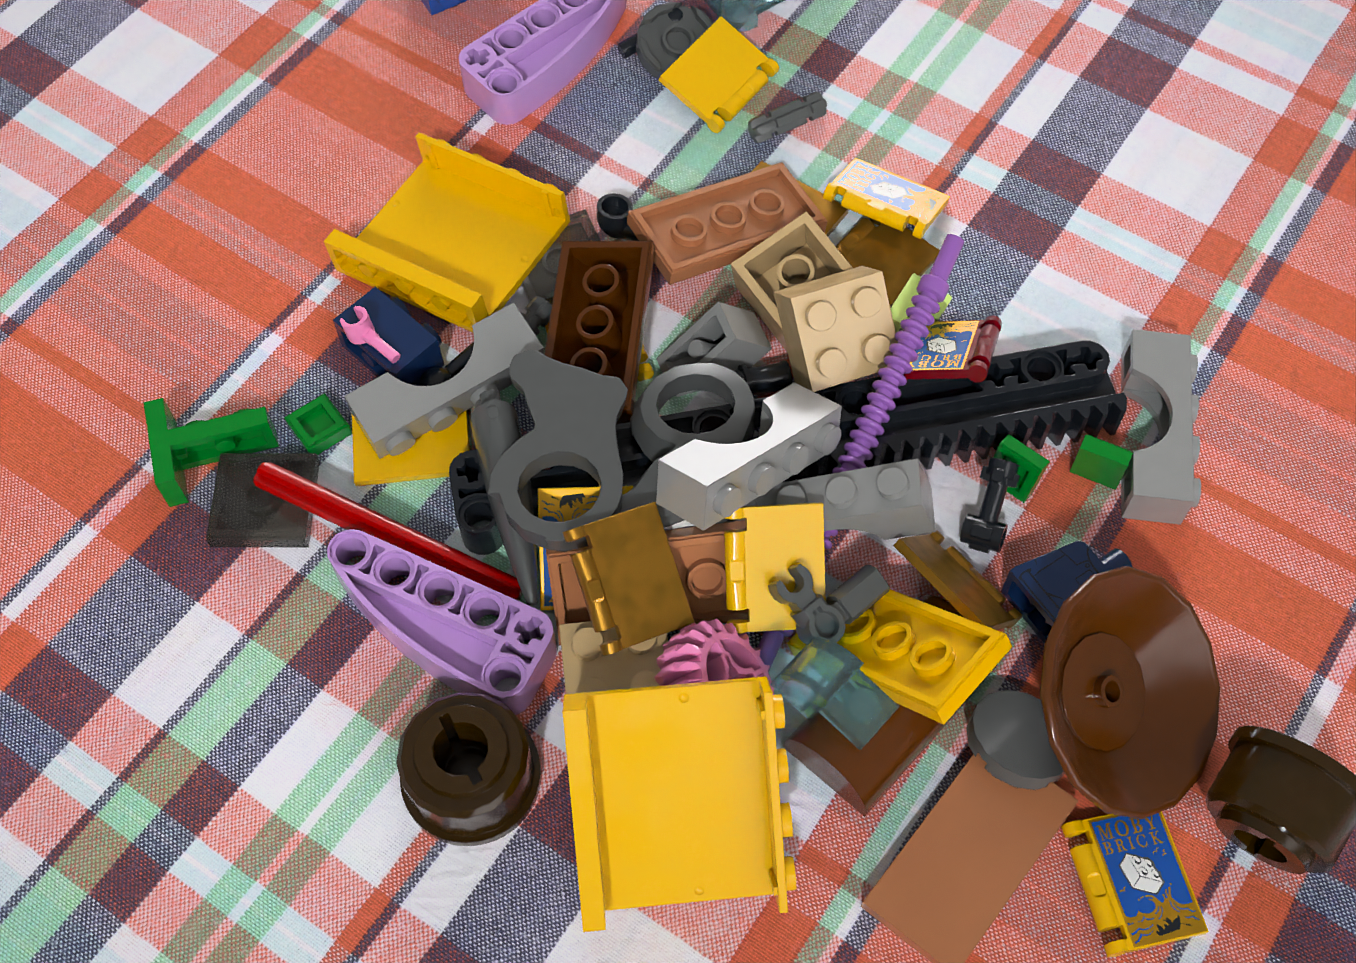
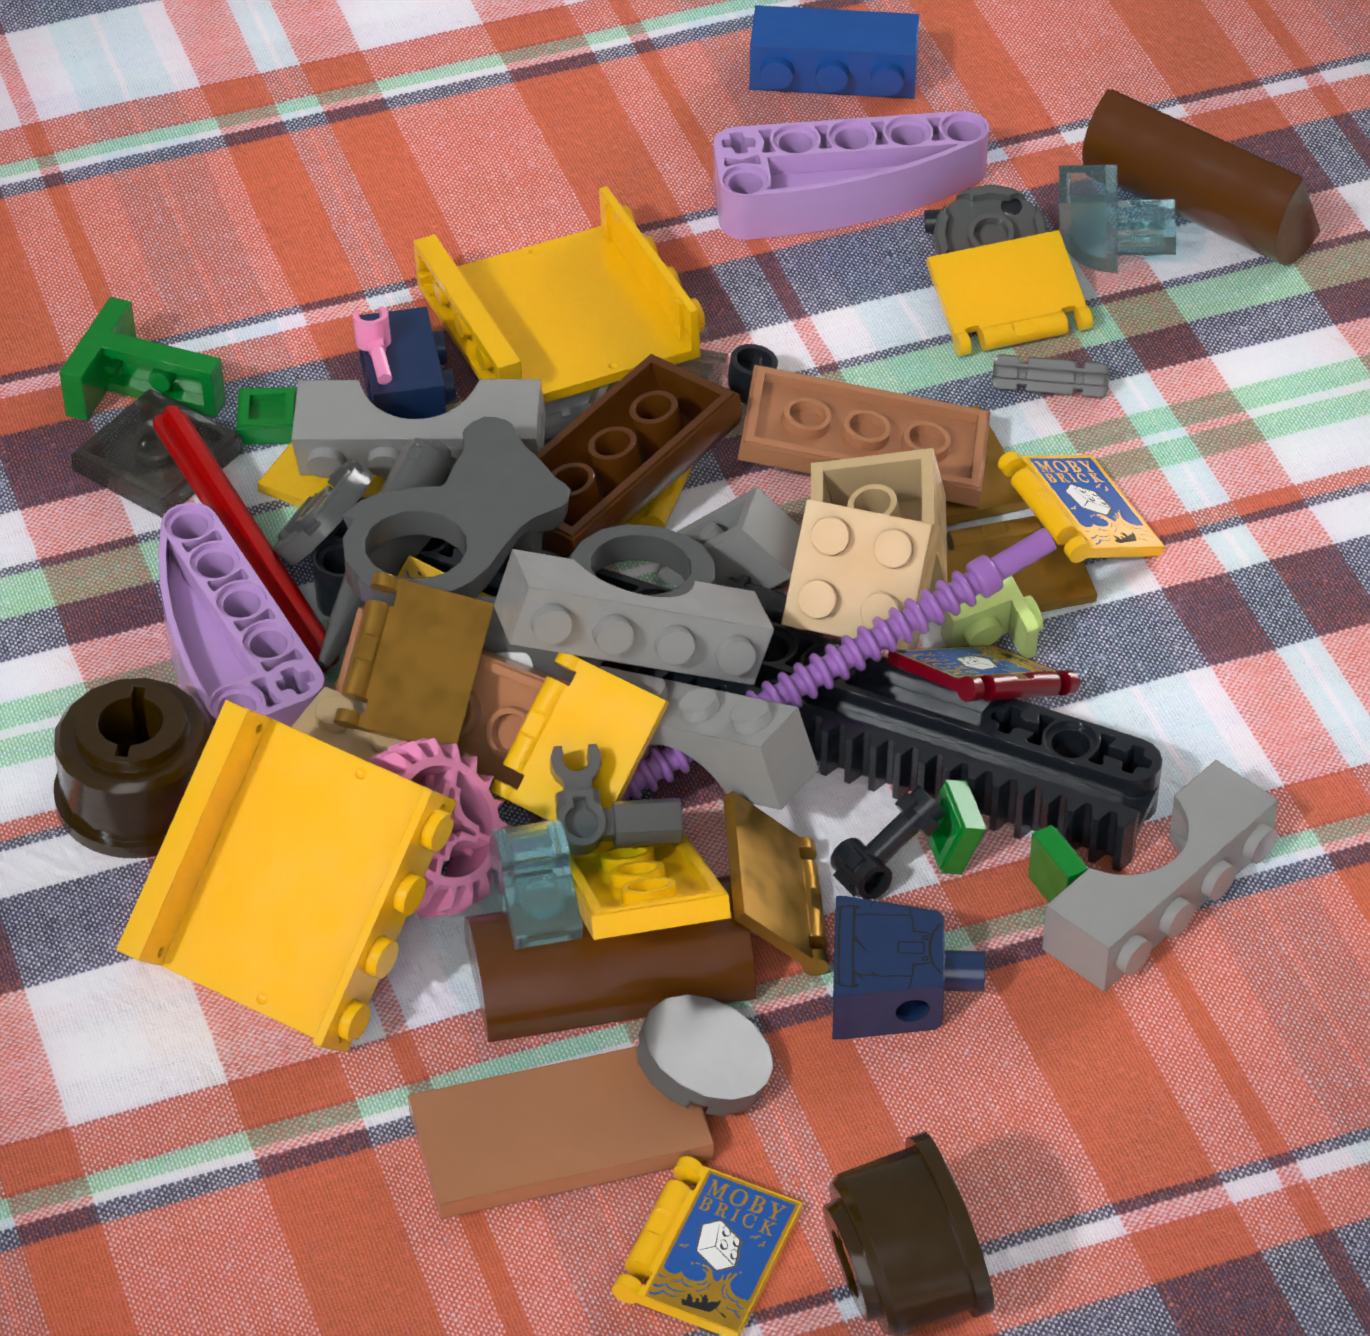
camera: 35 degrees right, 15 degrees down
(436, 485) = (322, 512): none -> dark grey tile
(1130, 692) = (890, 1002): reddish brown dish -> none

